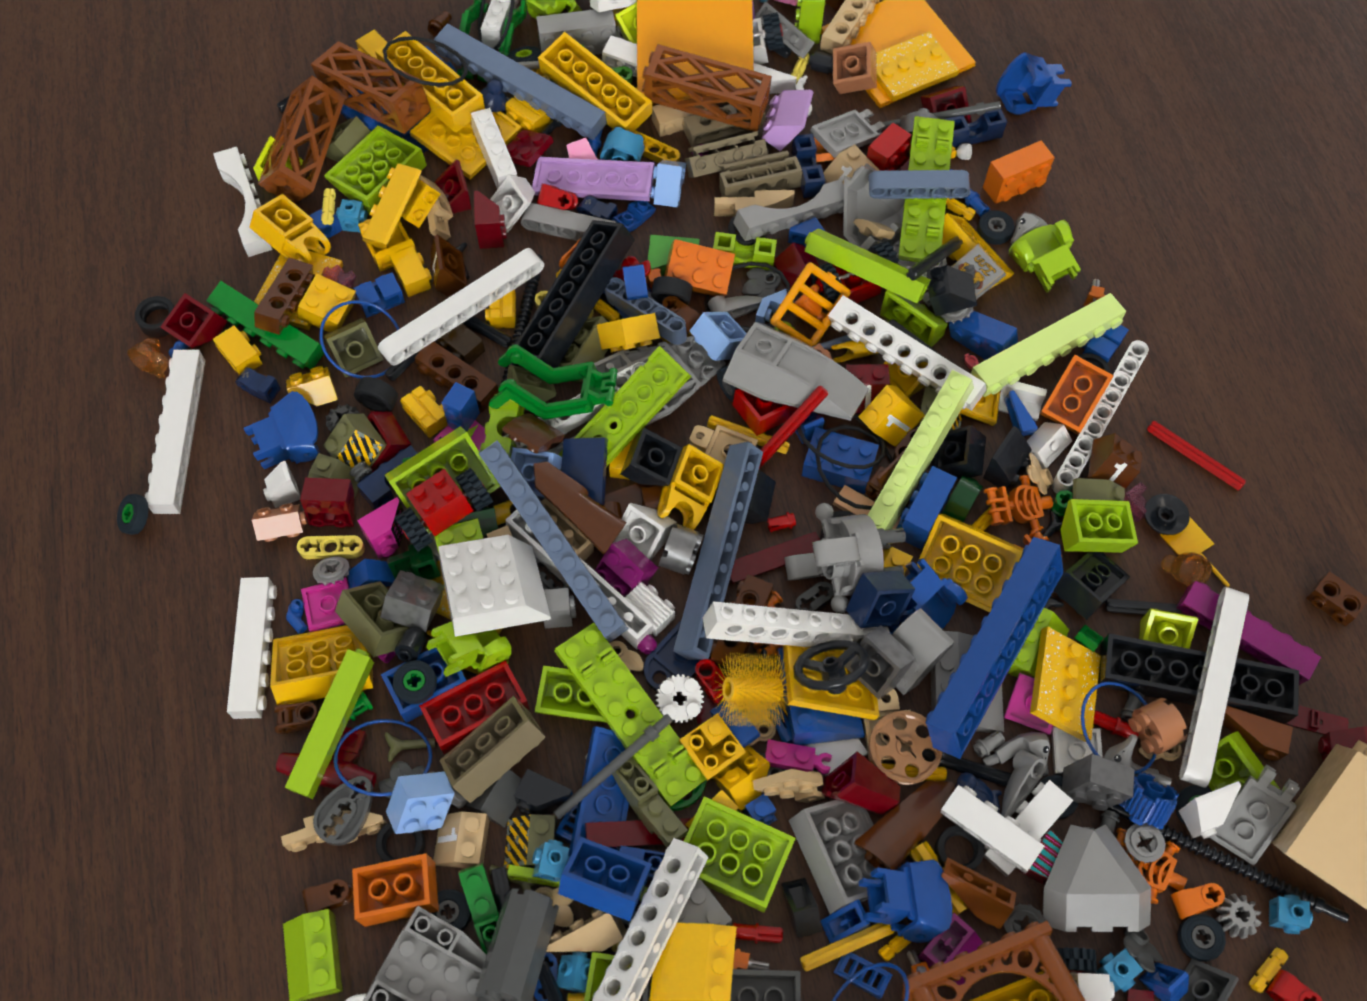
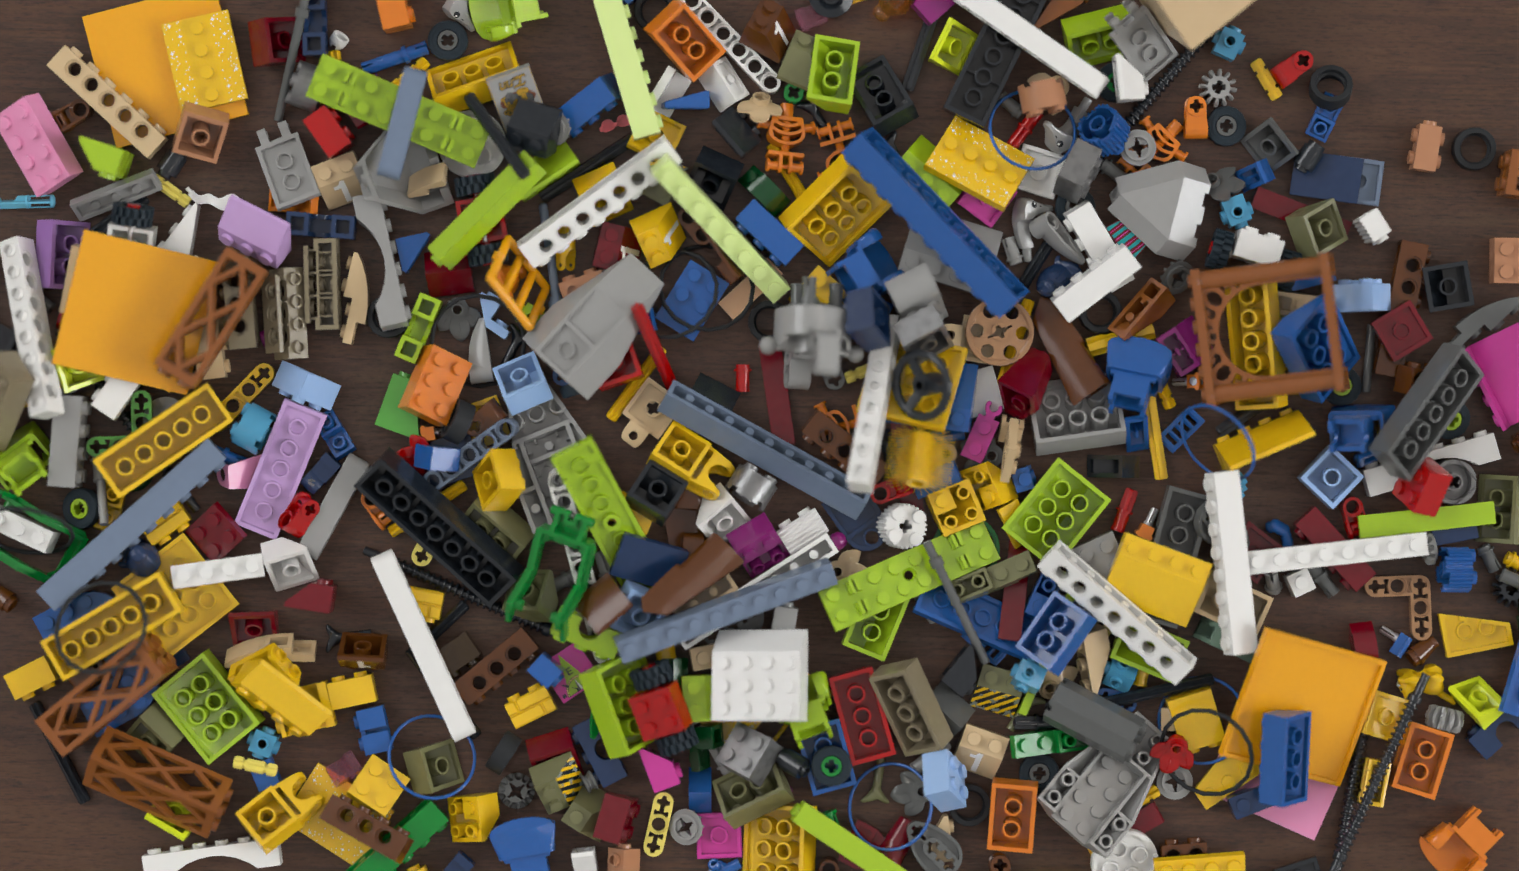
camera: 75 degrees left, 25 degrees up
(1089, 638) = (936, 120): green tile -> none

